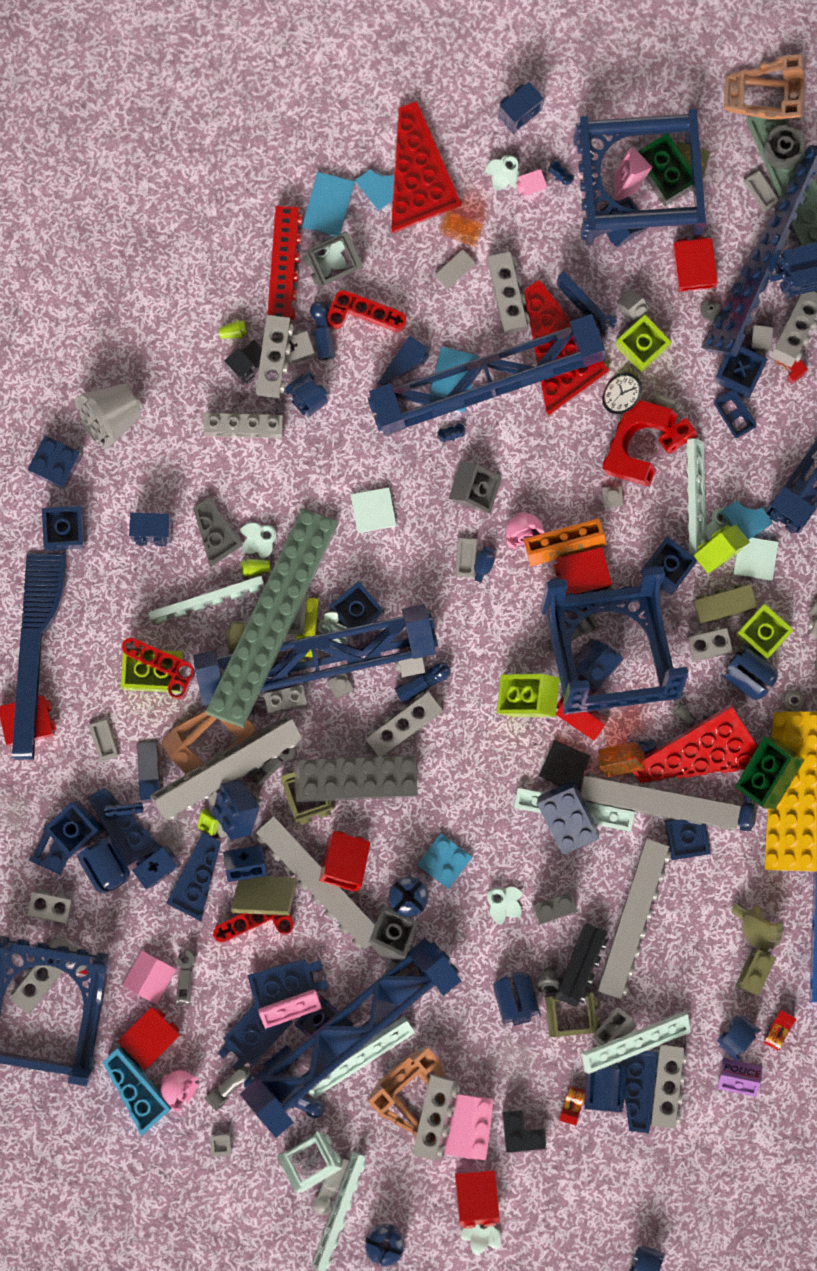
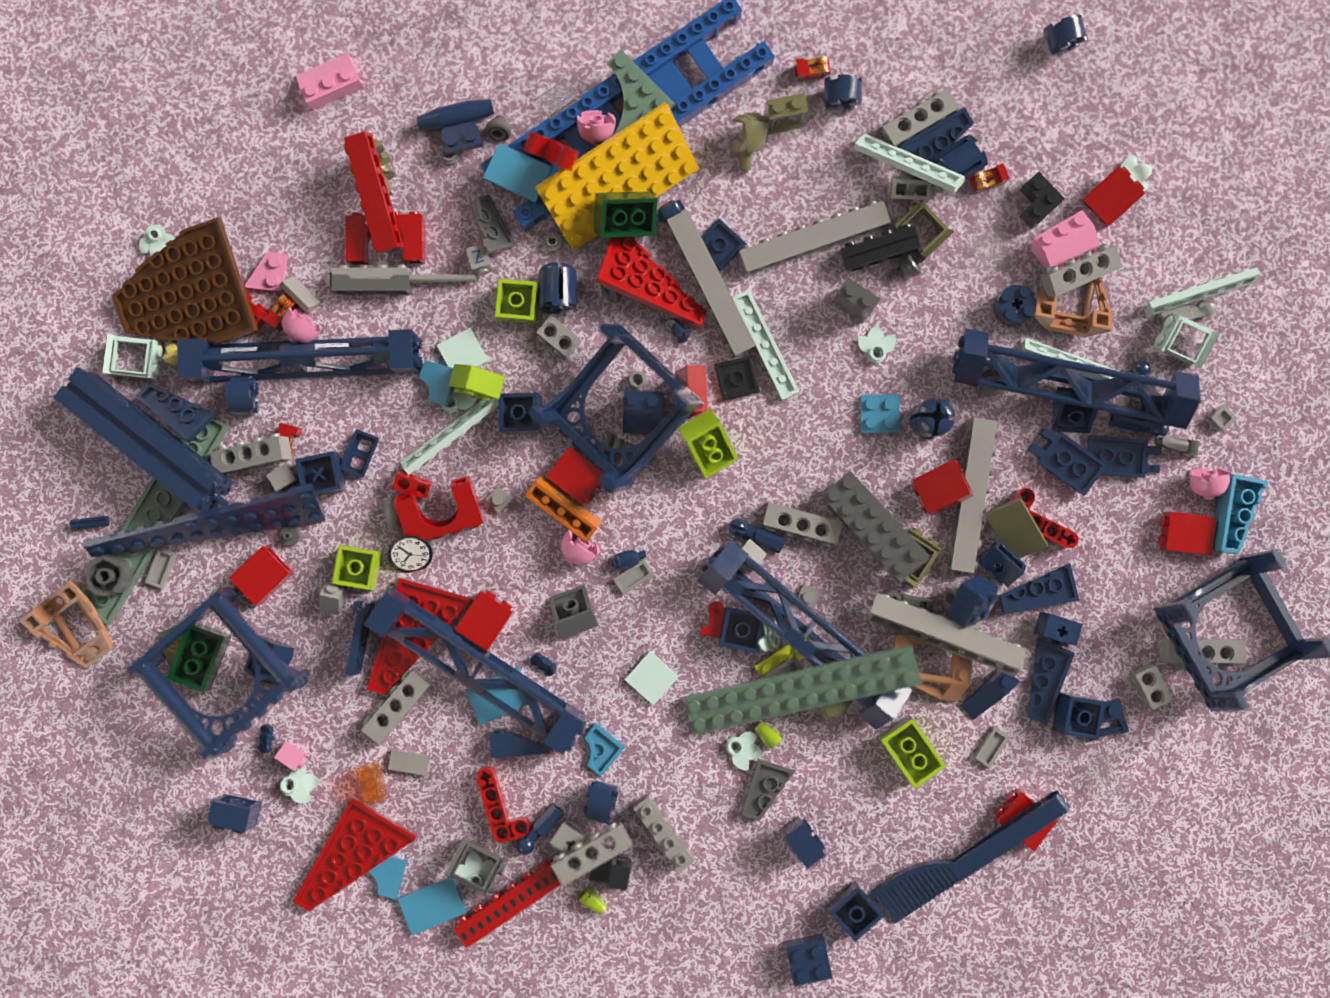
camera: 135 degrees left, 5 degrees up
(104, 865) = (1090, 669): dark blue cylinder -> none
(108, 413) = (736, 949): light grey cone -> none
(123, 809) = (1034, 689): dark blue axle -> none
(149, 977) = (1142, 569): bright pink slope -> none
(156, 663) = (908, 752): red beam -> none
(185, 978) = (1120, 543): dark grey piece -> none
(197, 603) = (830, 757): light aqua plate -> none
(207, 822) = (994, 617): lime tile -> none
(285, 700) = (853, 630): light grey brick -> none
(290, 1008) = (1085, 443): bright pink tile -> none
(346, 428) = (603, 749): none -> dark azure tile
(374, 1250) = (1206, 243): dark blue cylinder -> none
(385, 600) = (716, 614): none -> red leg
(392, 934) = (971, 407): dark grey slope -> none
(459, 1037) = (1019, 295): none -> dark blue brick
(506, 1000) = (951, 284): dark blue cylinder -> none
(523, 413) = (485, 619): none -> red brick
(568, 817) = (778, 342): brick -> none
(621, 759) = (701, 336): clear orange brick -> none
(627, 676) = (632, 376): none -> light grey plate
(630, 174) = (224, 682): bright pink slope -> none
(683, 713) = (627, 317): dark grey pin -> none
(724, 604) = (517, 349): olive brick -> none
(740, 1077) = (870, 70): medium lavender panel -> none

